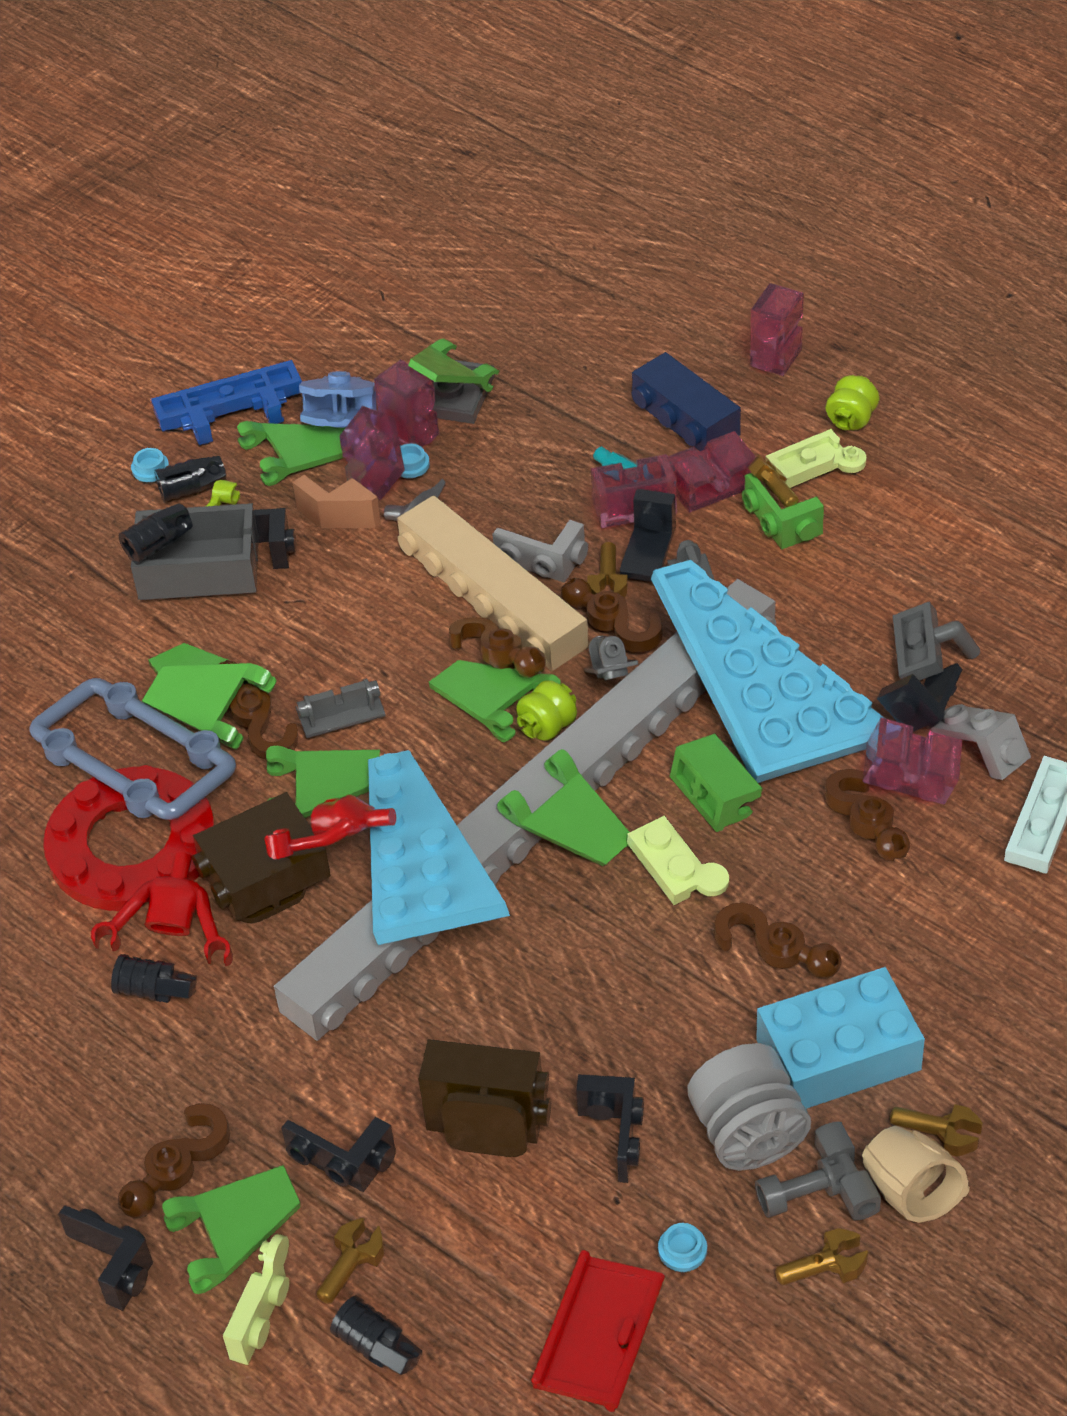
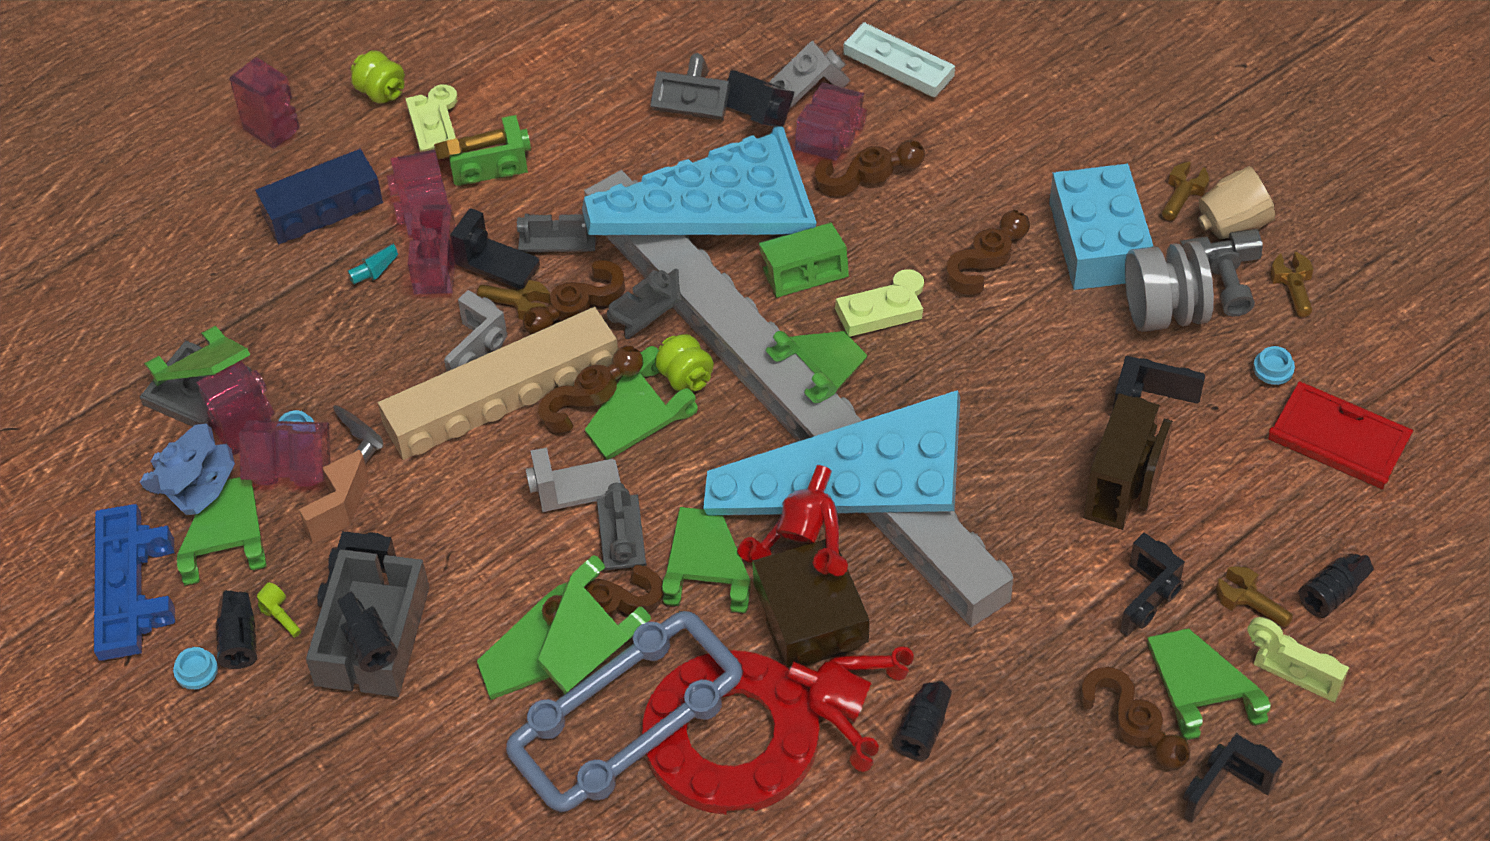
camera: 80 degrees left, 5 degrees up
(381, 655) = (569, 485): none -> light grey bracket

